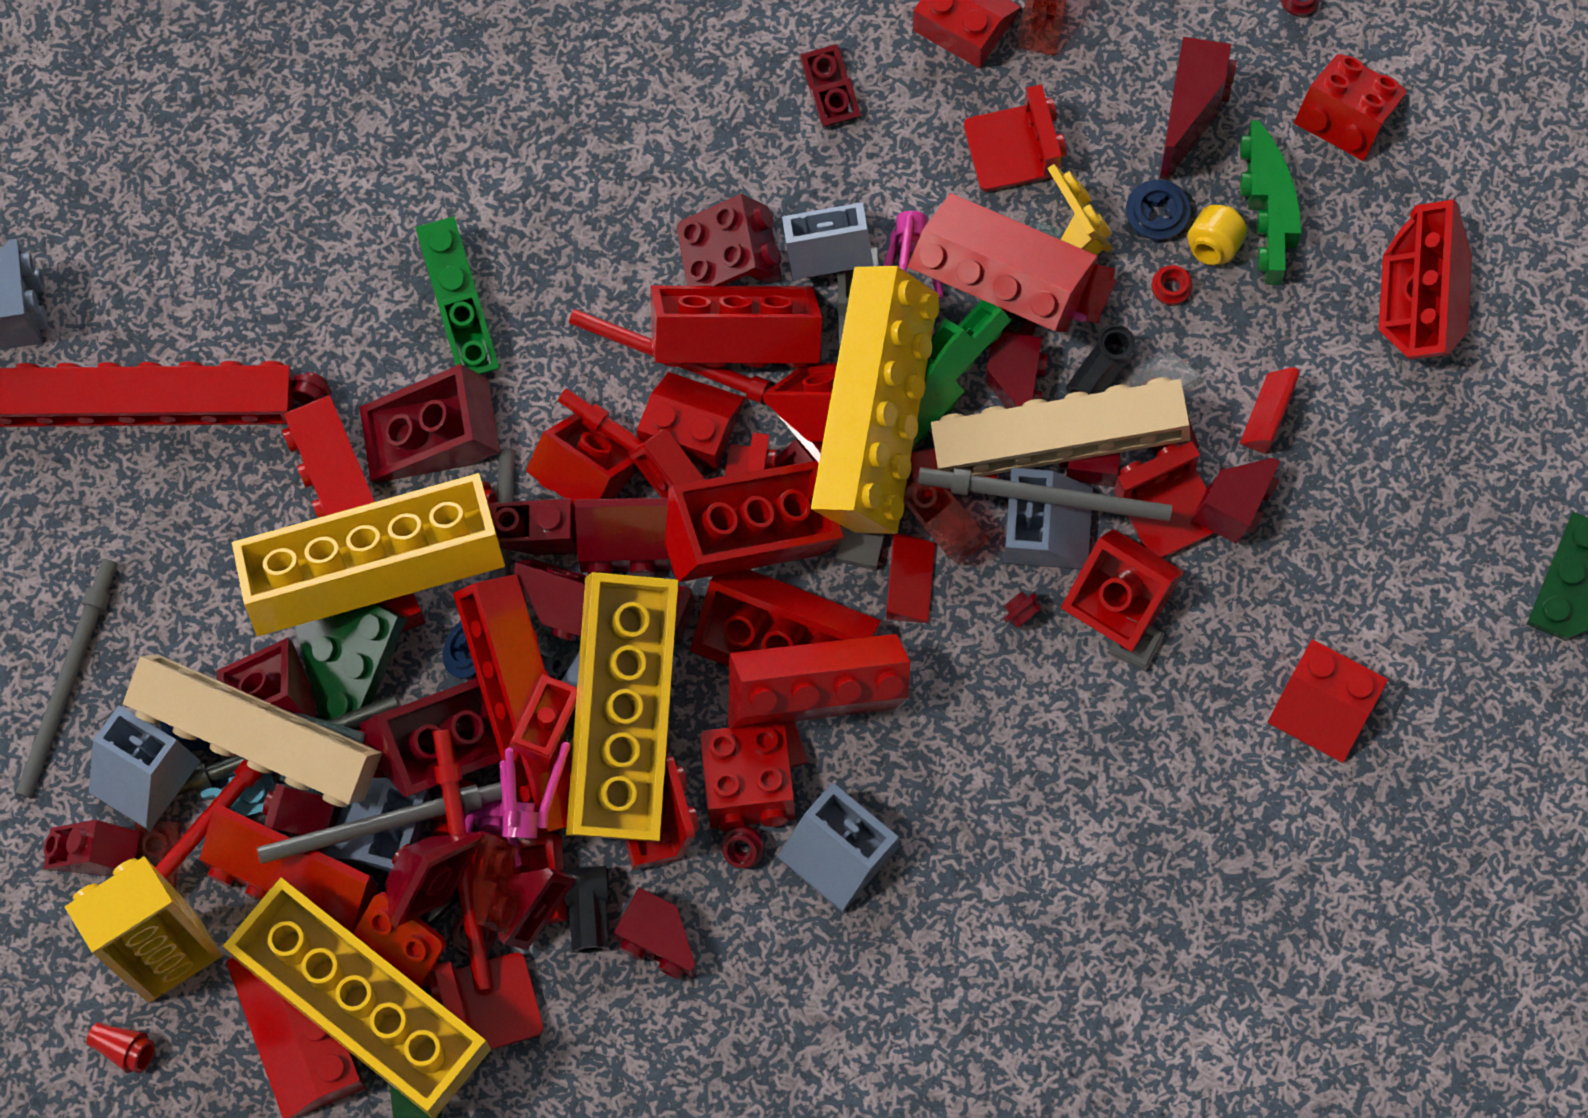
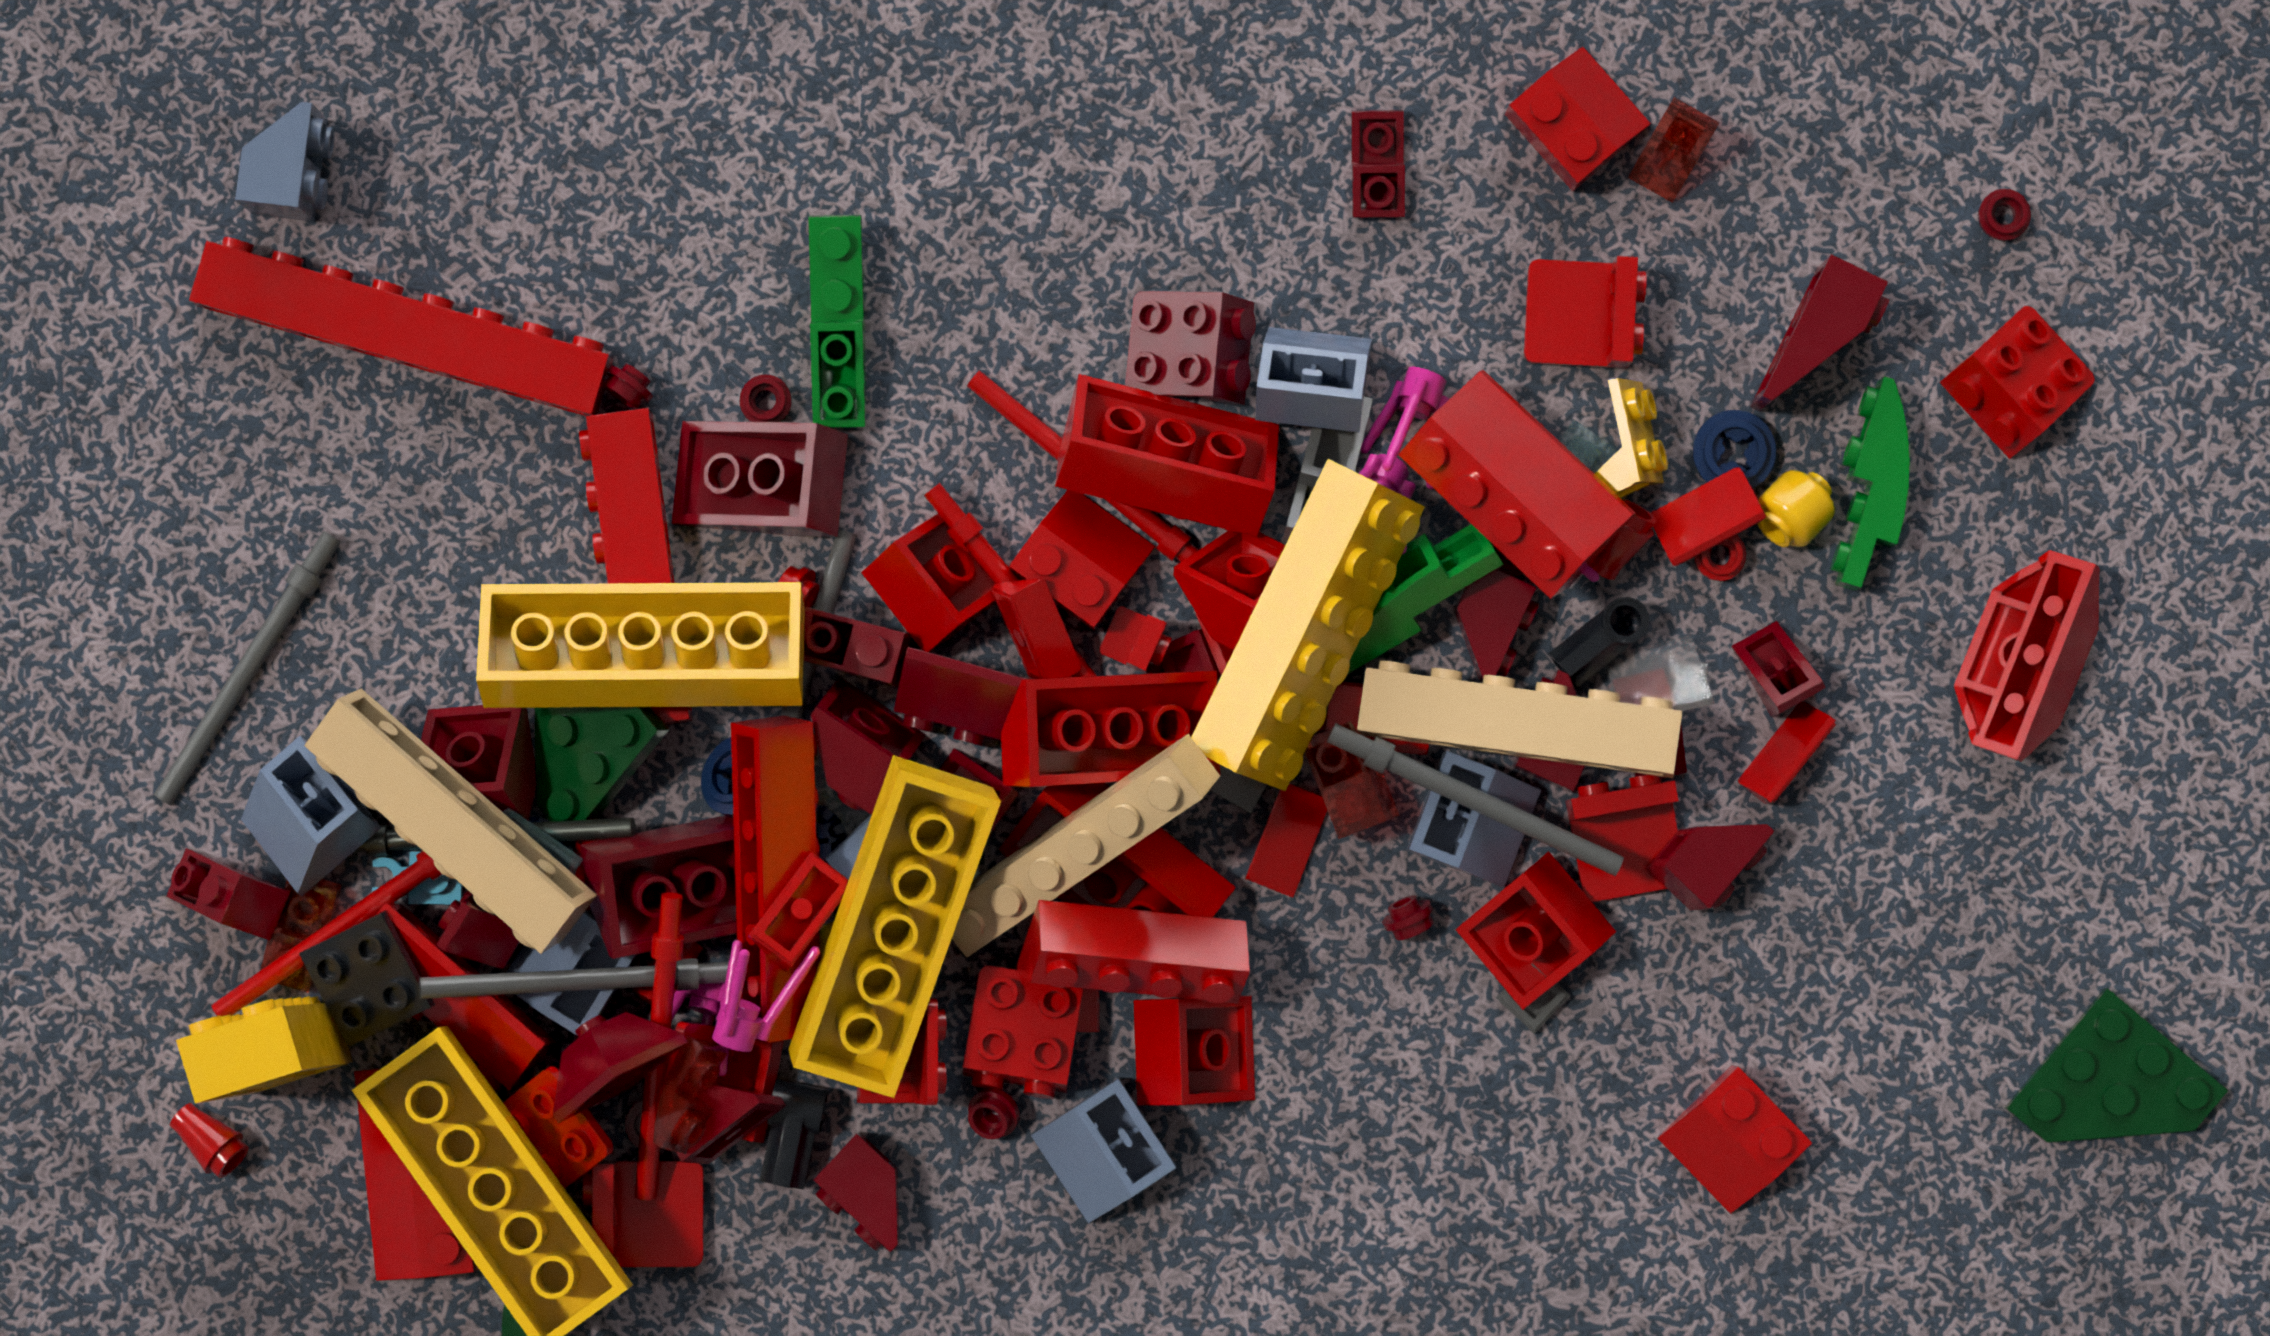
camera: 10 degrees right, 15 degrees up
(215, 870) = (366, 978): none -> black plate
(415, 362) = (761, 384): none -> dark red plate
(750, 605) = (1084, 842): none -> tan brick
(885, 753) = (1193, 1051): none -> red slope
(1153, 255) = (1707, 516): none -> red slope
(1244, 352) = (1777, 669): none -> dark red slope

